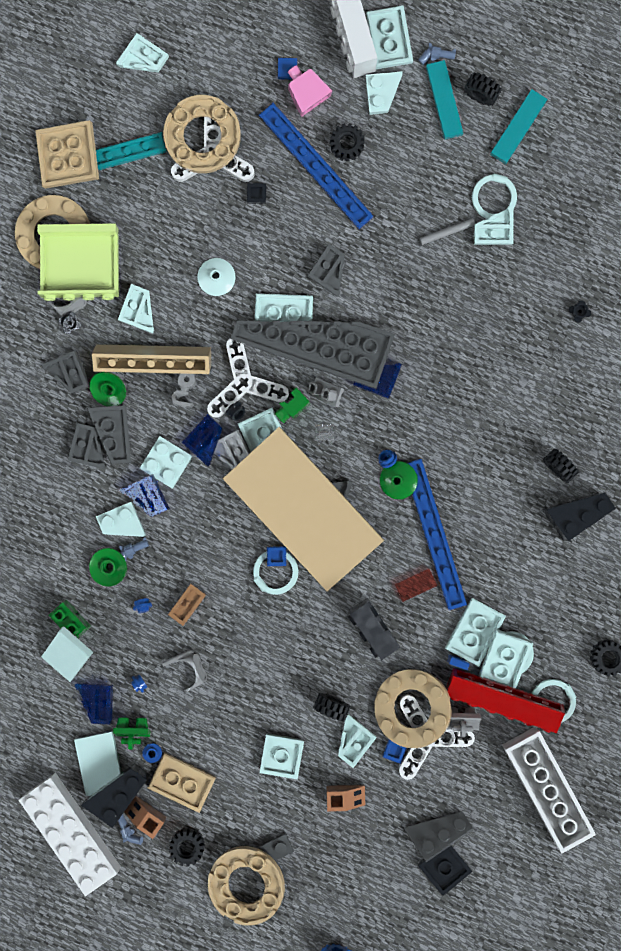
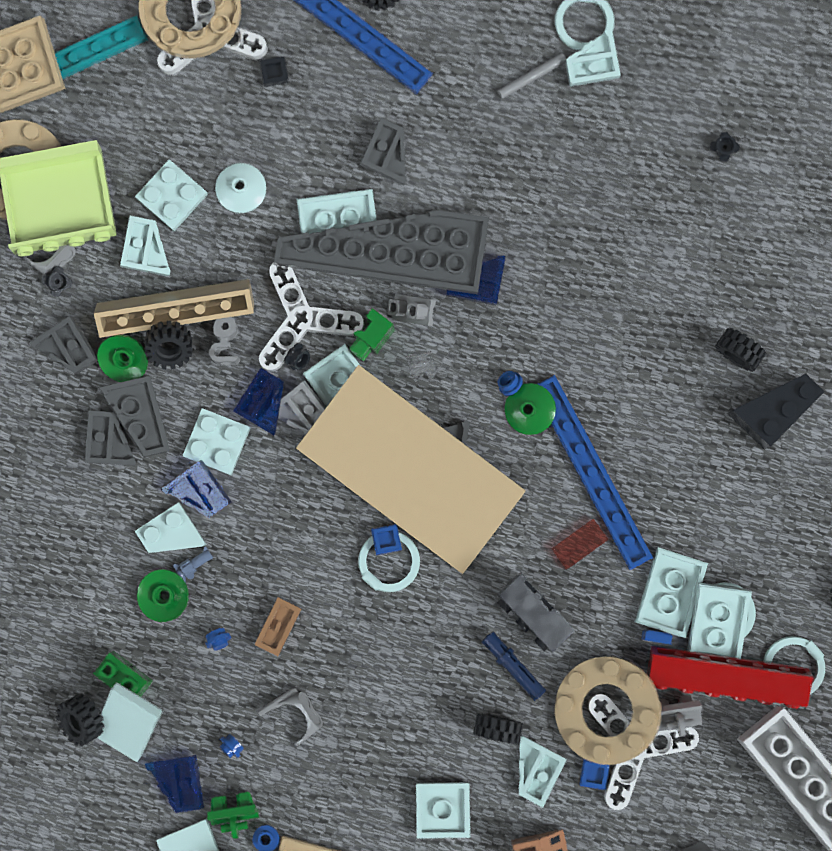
camera: 15 degrees left, 5 degrees down
(33, 645) = (80, 720): none -> black tyre
(145, 378) = (168, 356): none -> black tyre
(164, 273) = (171, 195): none -> light aqua plate
(349, 660) = (516, 669): none -> dark blue pin

